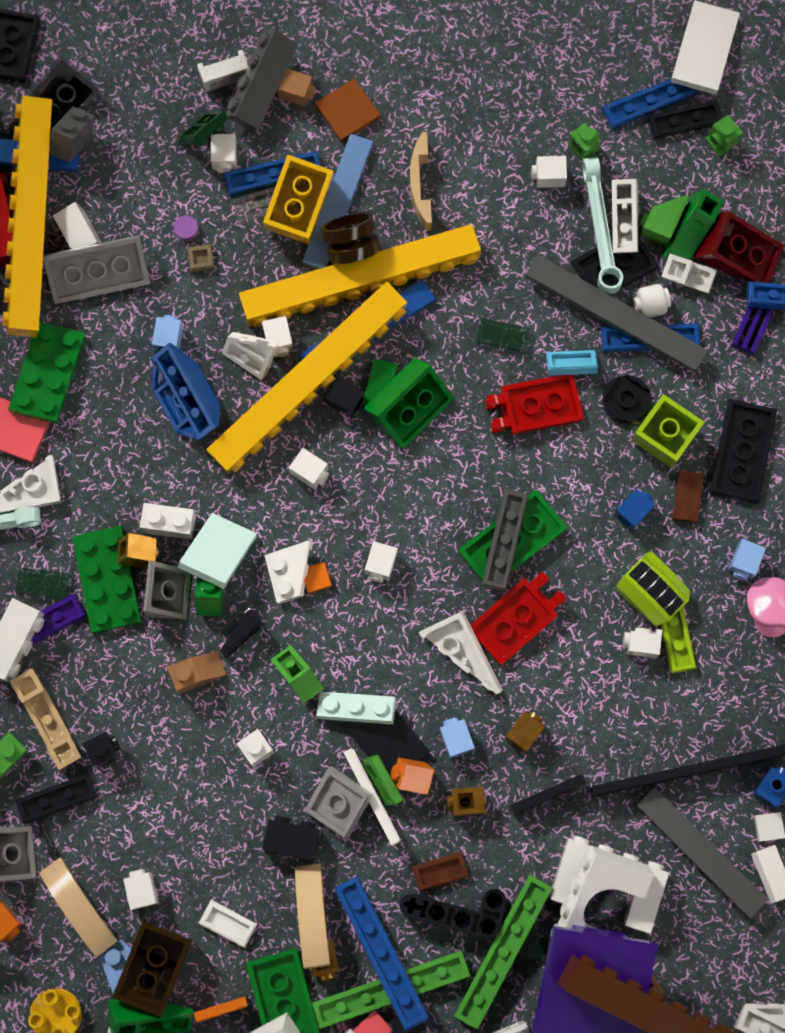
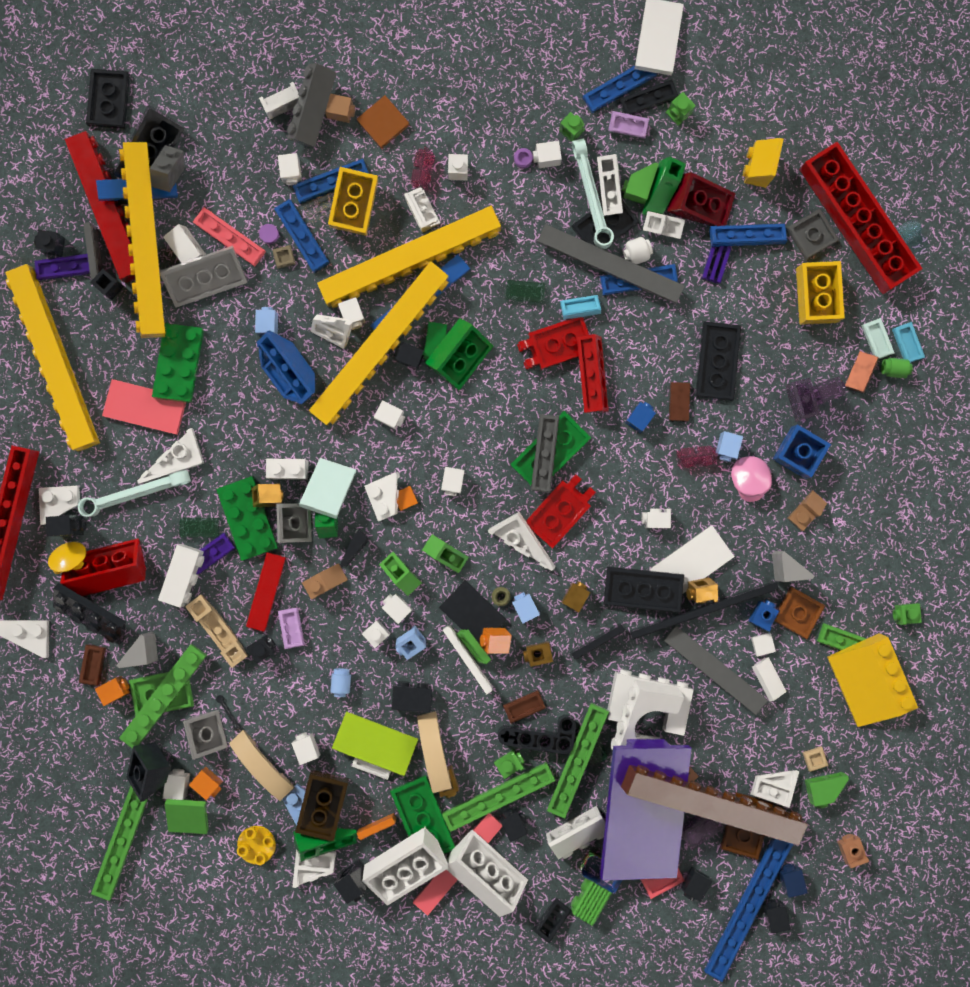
camera: 10 degrees left, 10 degrees up
(56, 799) = (233, 688): black tile -> none
(117, 677) = (266, 592): none -> red tile
(134, 224) = (229, 236): none -> coral tile
(144, 728) = (291, 628): none -> lavender plate
(199, 131) = (273, 148): dark green plate -> none
(199, 807) = (340, 682): none -> light blue brick
(227, 235) = (301, 235): none -> blue tile
(234, 896) = (375, 743): none -> lime tile
(286, 717) = (396, 607): none -> white brick
(295, 776) = (417, 645): none -> light blue brick
(338, 197) = (384, 198): medium blue tile -> none
(338, 802) = (443, 666): light grey tile -> none
(351, 238) = (398, 228): dark brown wheel -> none
(356, 707) = (447, 594): light aqua plate -> none
(359, 654) = (445, 553): none -> bright green slope
(381, 954) = (488, 773): blue tile -> none
(384, 218) = (421, 209): none -> white hinge
(394, 161) = (424, 159): none -> clear pink hinge
(412, 946) = (510, 763): none -> bright green bracket
(421, 207) = (452, 195): tan slope -> none
(429, 713) = (505, 601): none -> olive plate
(435, 174) = (458, 167): none -> white brick
(518, 173) = (523, 158): none -> medium lavender tile
(578, 446) = (592, 373): none -> red fence
(616, 733) = (643, 589): none -> black tile
(626, 406) = (625, 330): black tile -> none
(653, 589) = (661, 478): lime slope -> none
(656, 147) = (628, 124): none -> lavender plate
(667, 431) = (660, 353): lime brick -> none
(678, 644) = (680, 508): lime tile -> none
(683, 707) = (697, 557): none -> white tile
(694, 743) = (702, 590): none -> pearl gold brick
(715, 569) = (687, 458): none -> clear pink hinge

